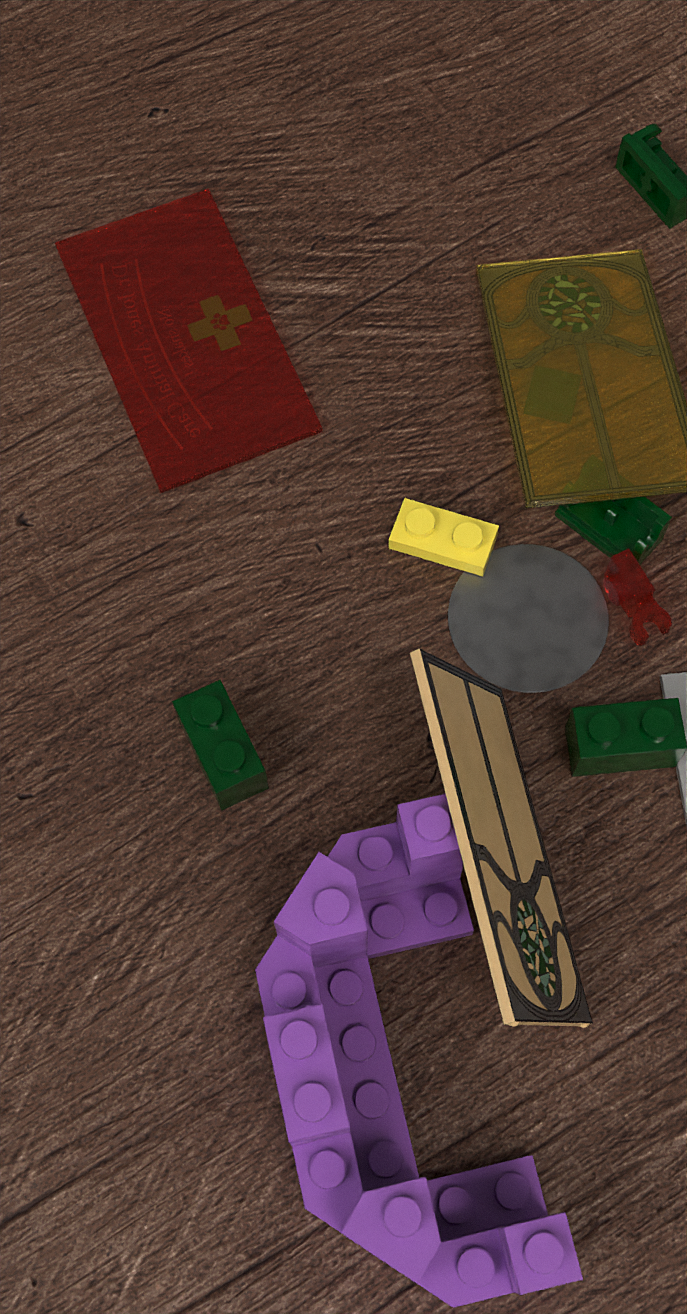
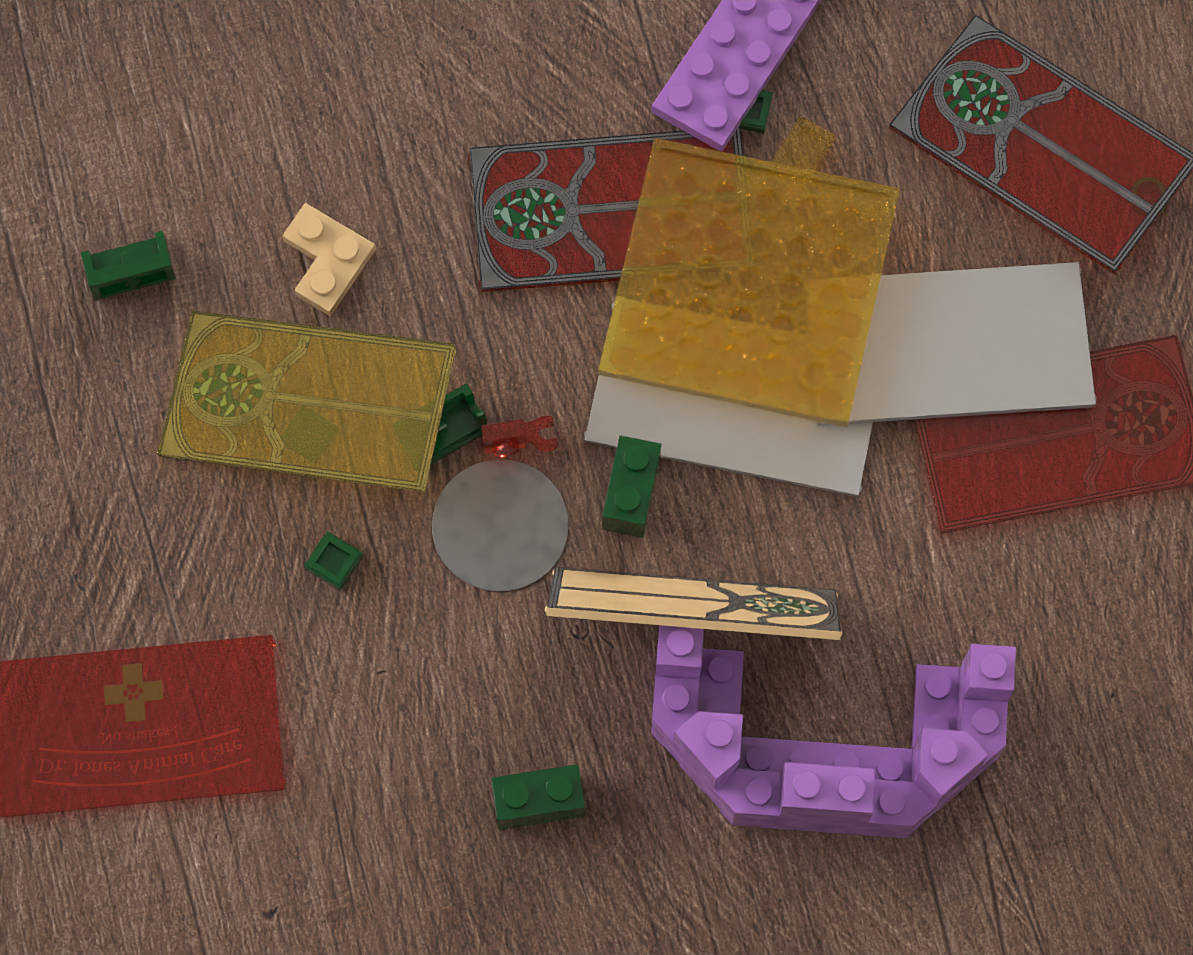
camera: 75 degrees left, 5 degrees up
(423, 461) = (333, 561): none -> dark green tile
(443, 537) = (410, 567): light yellow plate -> none

